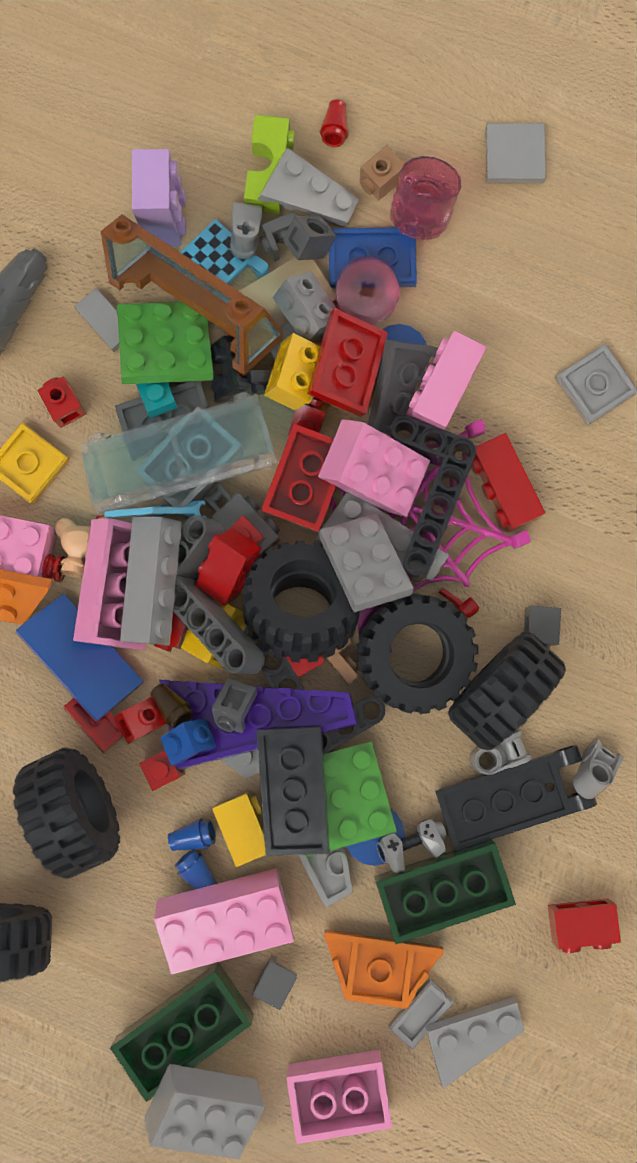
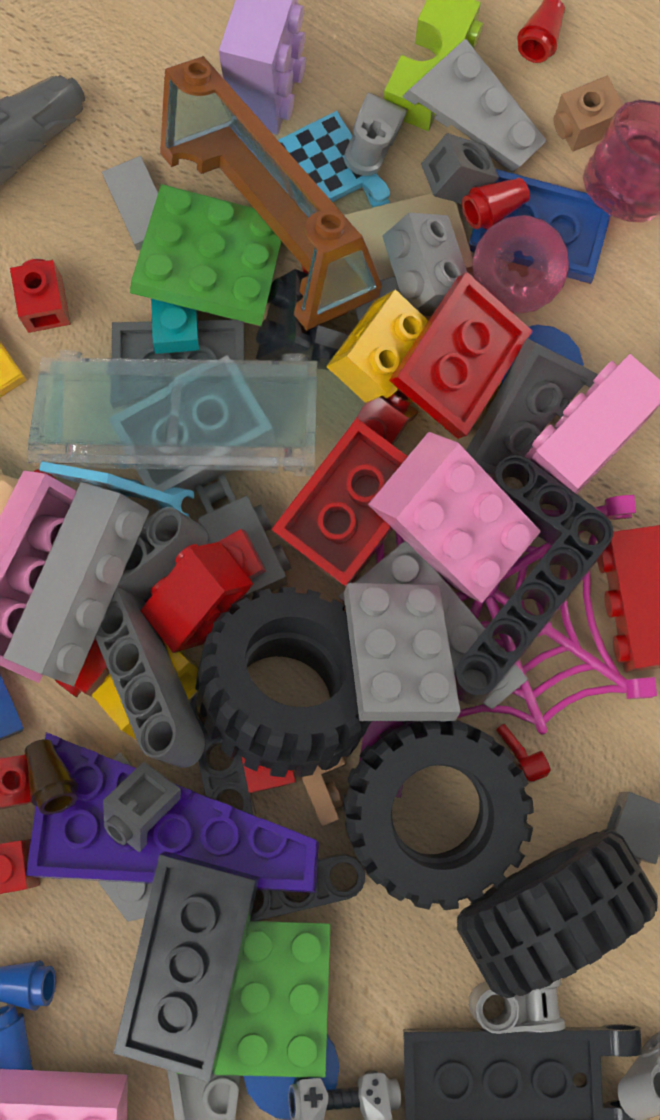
camera: 15 degrees right, 5 degrees down
(187, 741) = (54, 838): blue bracket -> none
(242, 827) = (93, 995): yellow brick -> none
(274, 233) = (410, 153): dark grey bracket -> none
(337, 253) = (493, 202): none -> red cone

